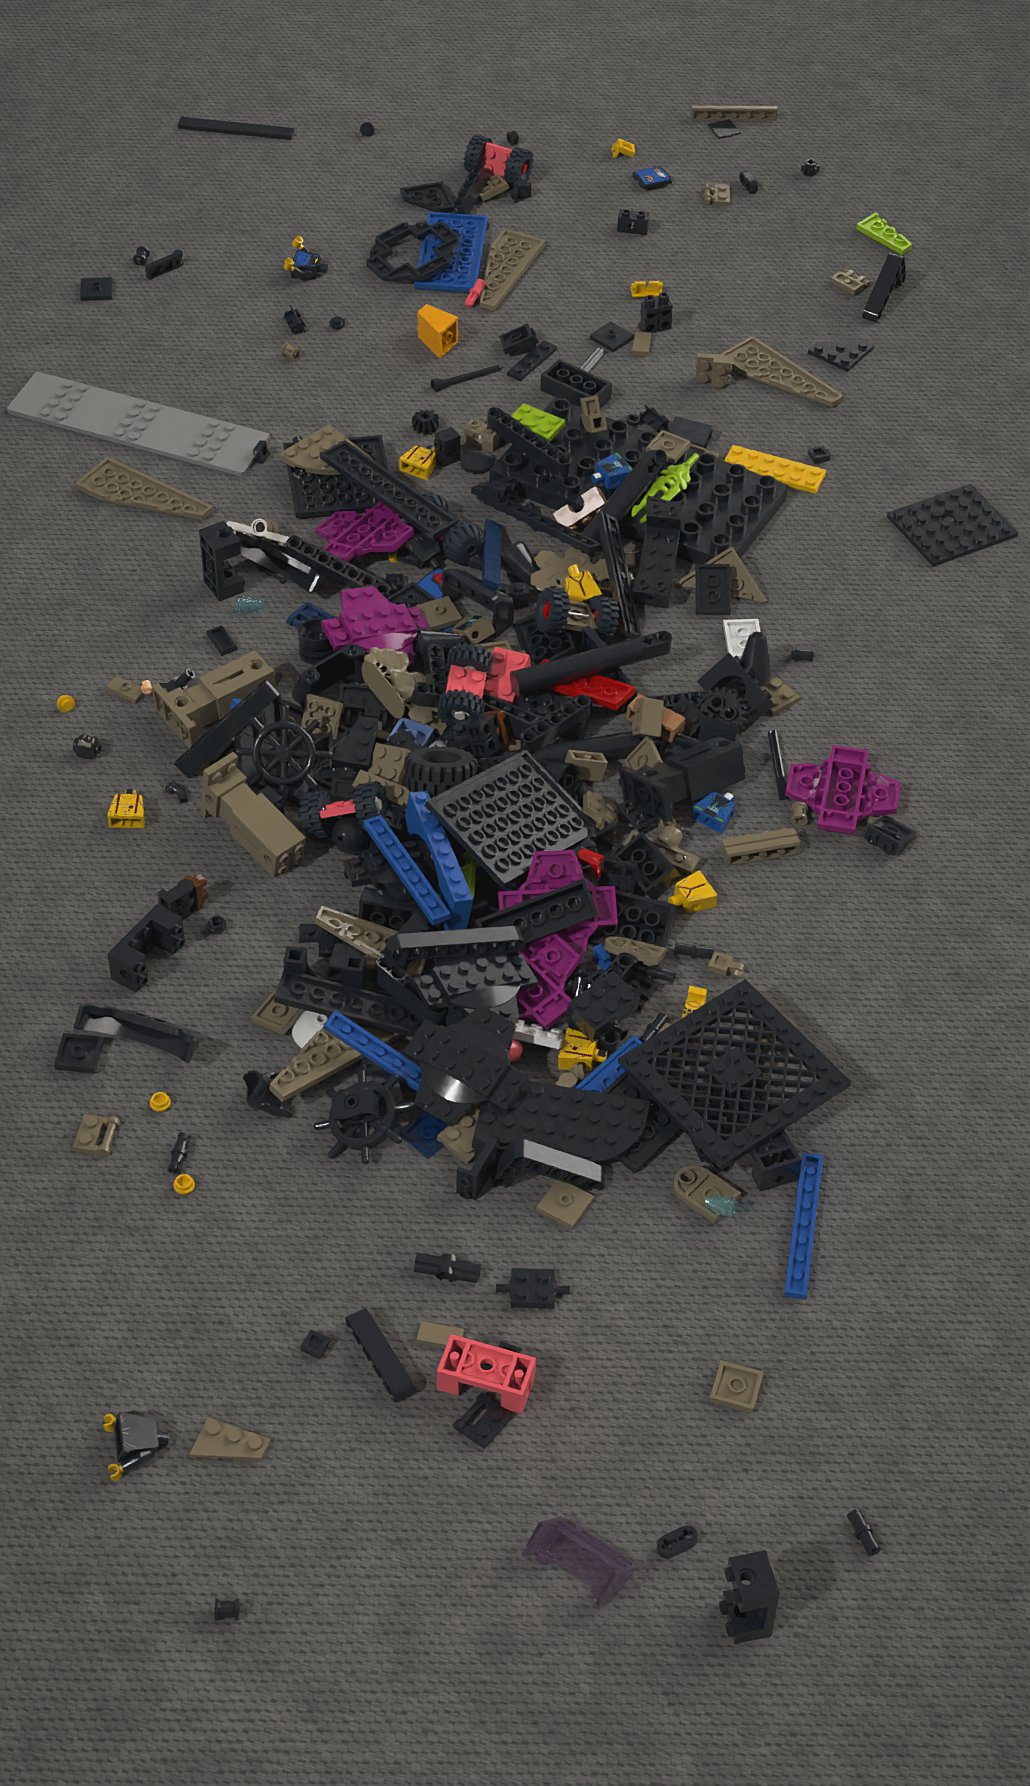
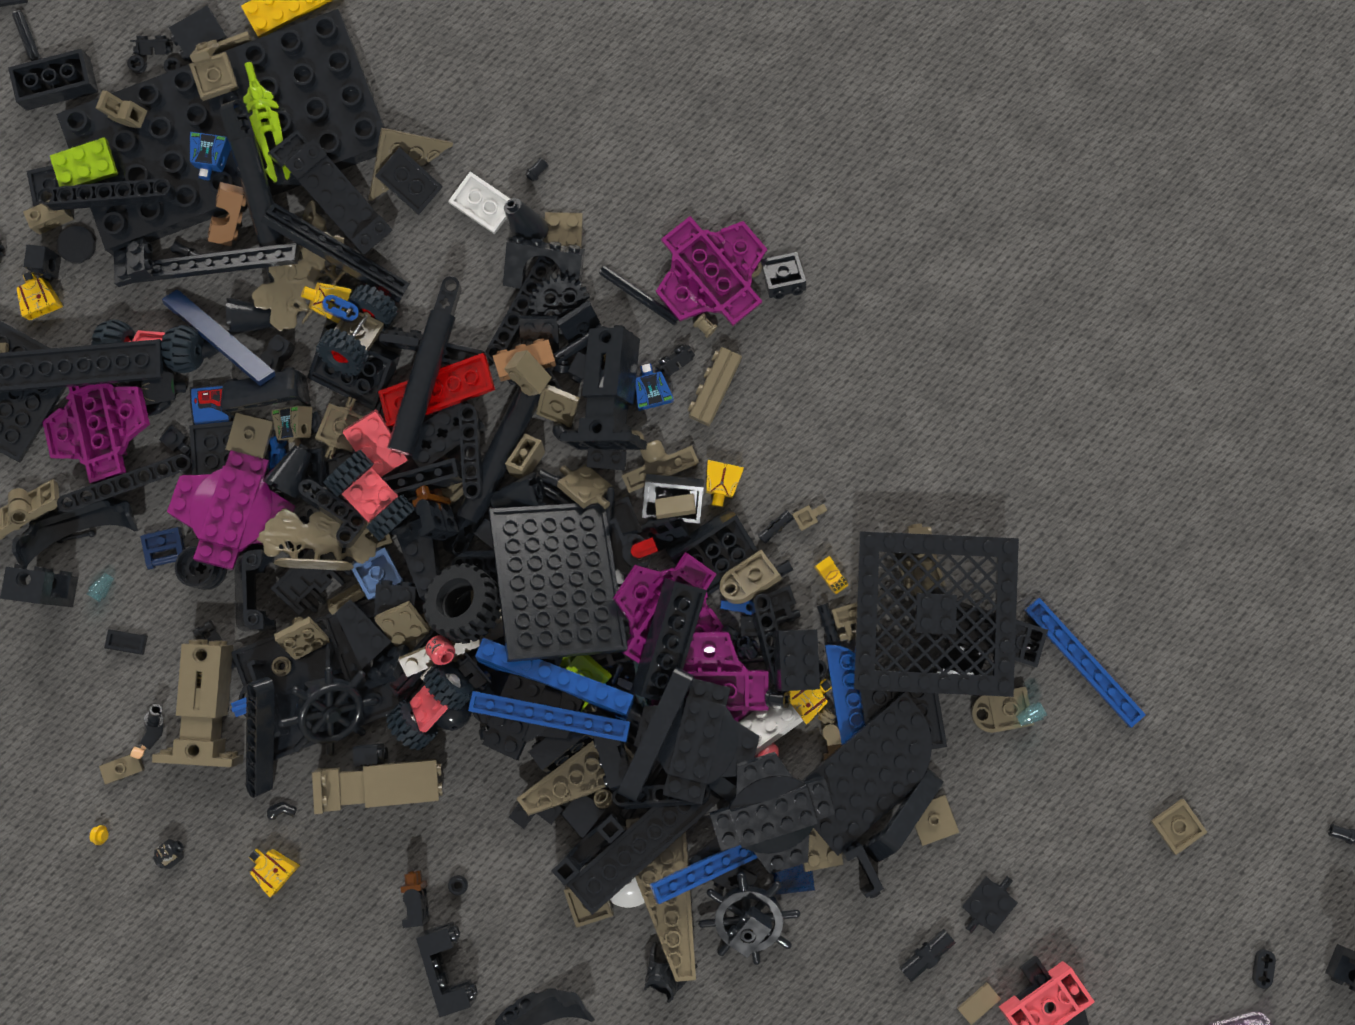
camera: 50 degrees left, 35 degrees up
(393, 779) = (440, 650): none -> coral head
(558, 1021) = (777, 698): none -> black bush
(584, 591) = (341, 303): none -> blue beam
(642, 859) = (675, 506): none -> dark tan tile
(679, 432) = (204, 51): none -> dark tan plate
(760, 812) = (680, 355): none -> black hinge

